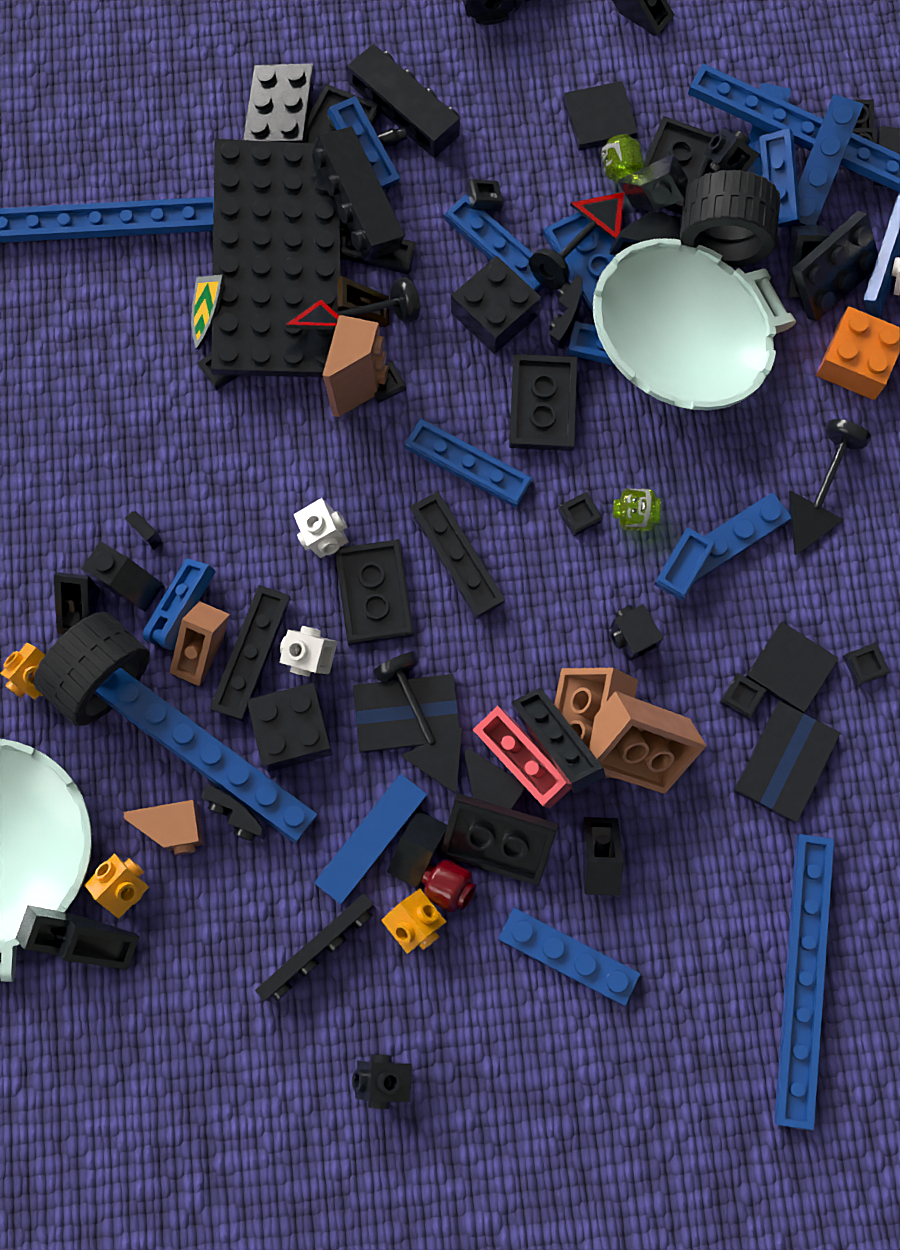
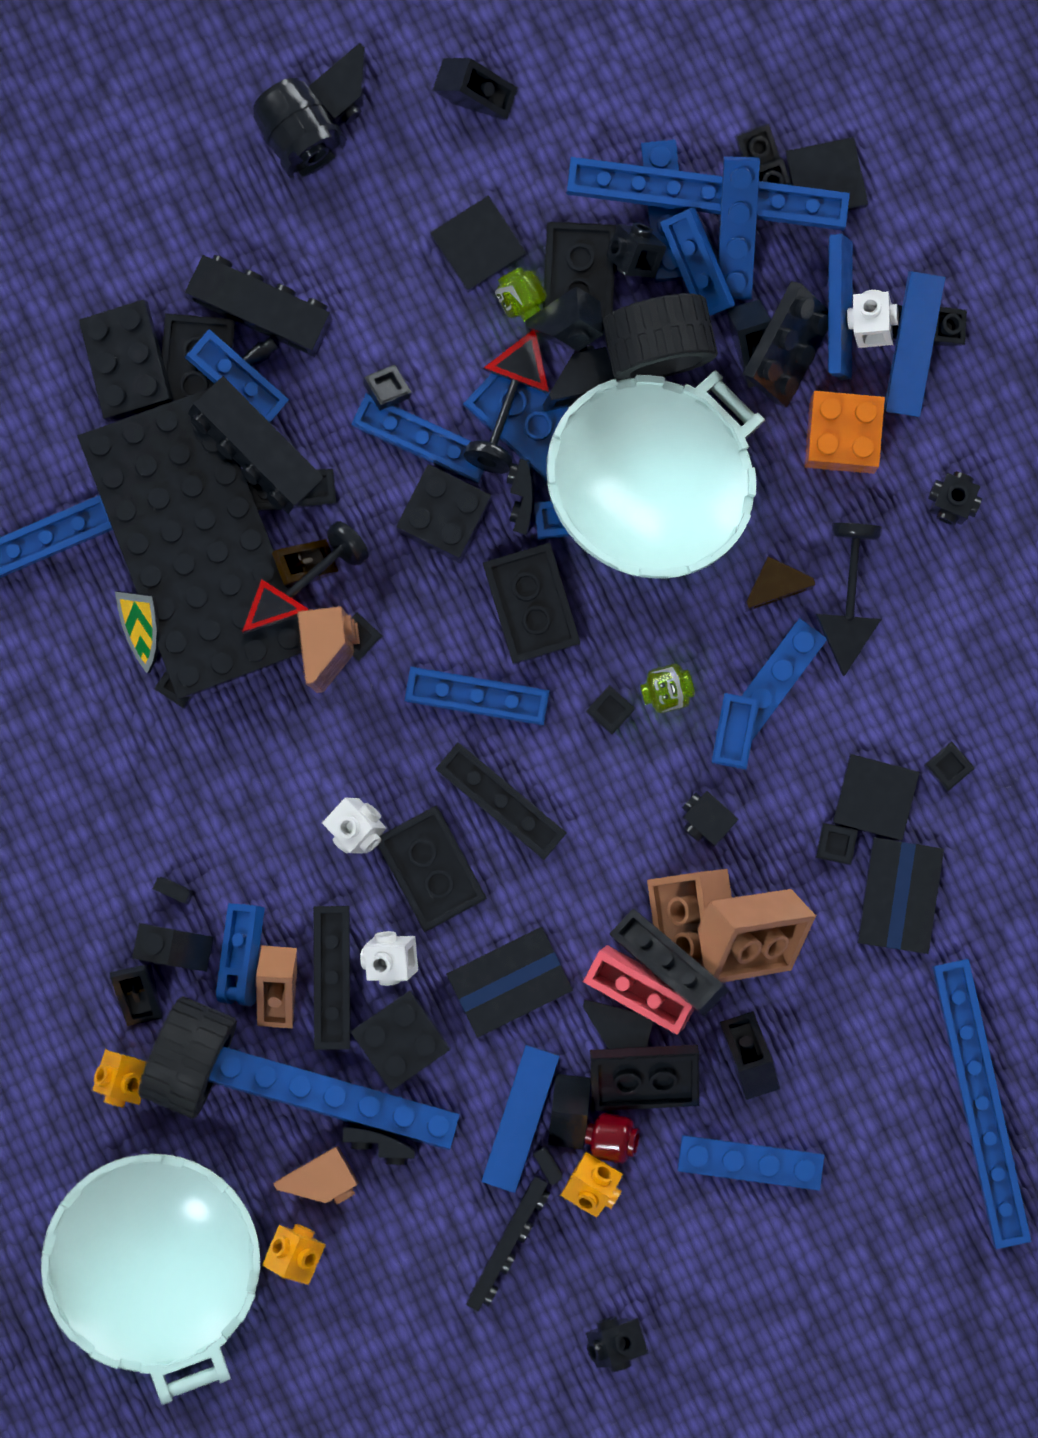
camera: 15 degrees left, 10 degrees up
(76, 938) = (276, 1318): black slope -> none
(380, 888) = (548, 1165): none -> black tile
(438, 756) = (557, 1015): black piece -> none
(763, 456) = (776, 583): none -> dark brown slope

